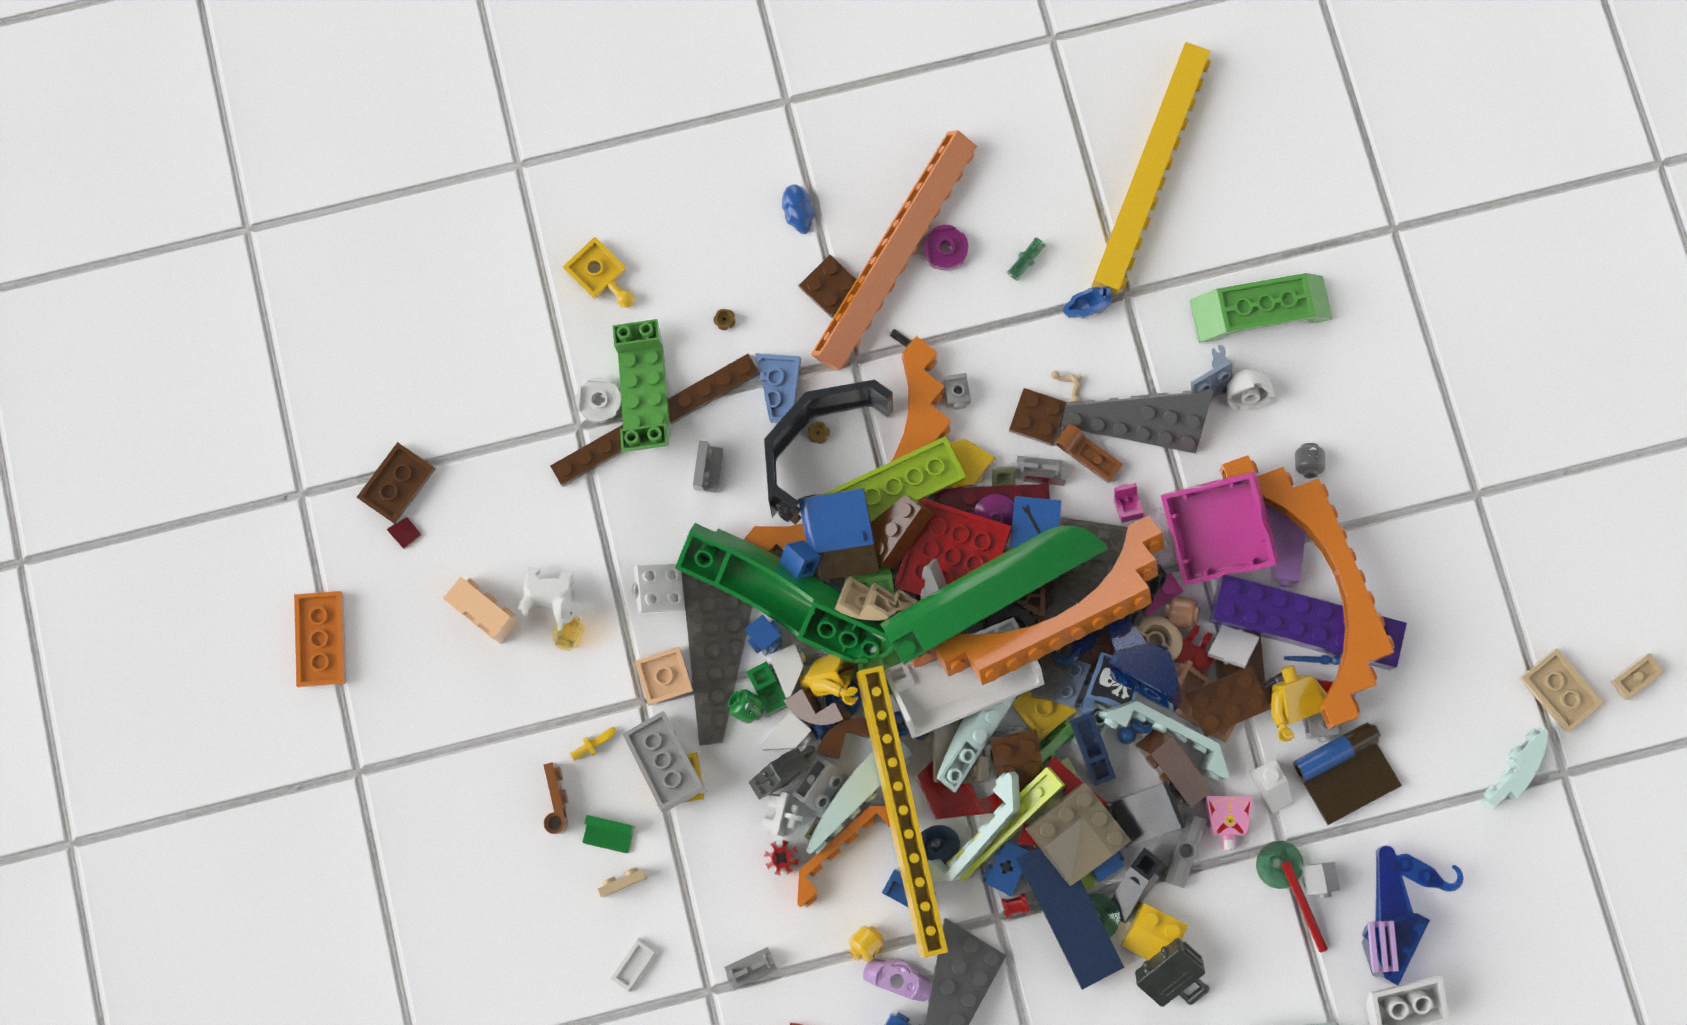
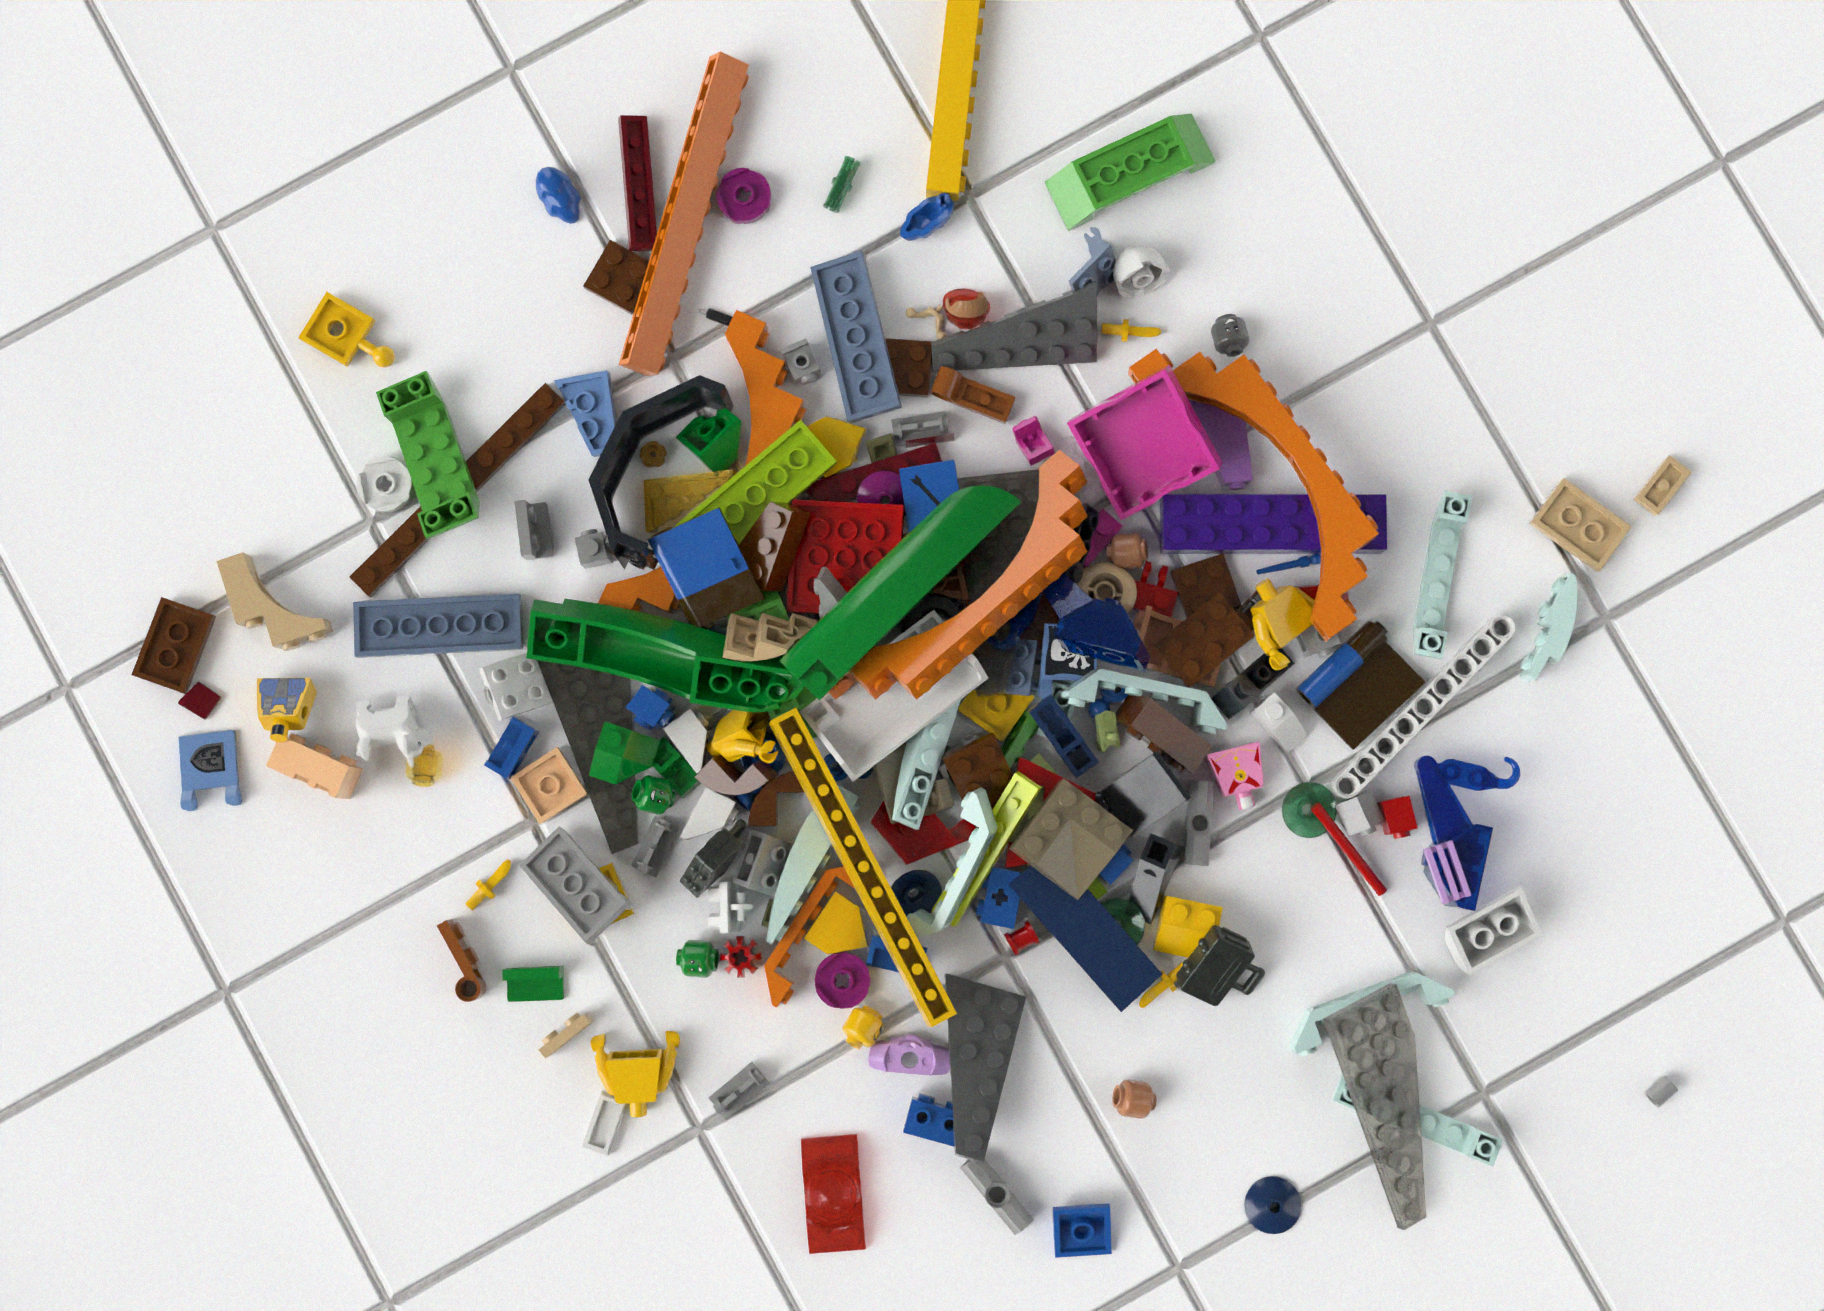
camera: 15 degrees left, 5 degrees up
(319, 639) = (136, 851): orange plate -> none
(396, 584) = (209, 763): none -> medium blue flag
(469, 468) = (253, 604): none -> tan arch
(471, 553) = (284, 704): none -> torso
(610, 523) = (438, 625): none -> sand blue plate
(642, 637) = (512, 748): none -> blue hinge
(671, 931) = (636, 1074): none -> yellow torso
(724, 313) = (503, 343): pearl gold plate -> none
(730, 666) = (622, 754): none -> green slope
(736, 748) = (655, 846): none -> light grey hinge
(746, 849) = (698, 958): none -> green head
(751, 495) = (593, 549): none -> light grey brick
(799, 559) = (668, 609): blue brick -> none
(823, 470) = (670, 496): none -> clear yellow wing
(864, 215) = (637, 182): none -> dark red plate
(867, 855) = (838, 927): none -> yellow slope
(870, 434) = (713, 439): none -> green slope
(872, 904) = (841, 996): none -> magenta plate
(1006, 383) = (856, 337): none -> sand blue plate
(1101, 382) = (965, 308): none -> piece
(1126, 975) = (1166, 982): none -> yellow piece
(1128, 754) = (1106, 731): none -> yellowish green piece
(1226, 434) = (1125, 330): none -> yellow piece
(1233, 646) = (1195, 575): white piece -> none
(1254, 748) = (1248, 685): none -> black slope
(1352, 890) = (1398, 816): none -> red brick
(1405, 802) = (1434, 700): none -> white beam
(1433, 699) = (1437, 575): none -> light aqua slope

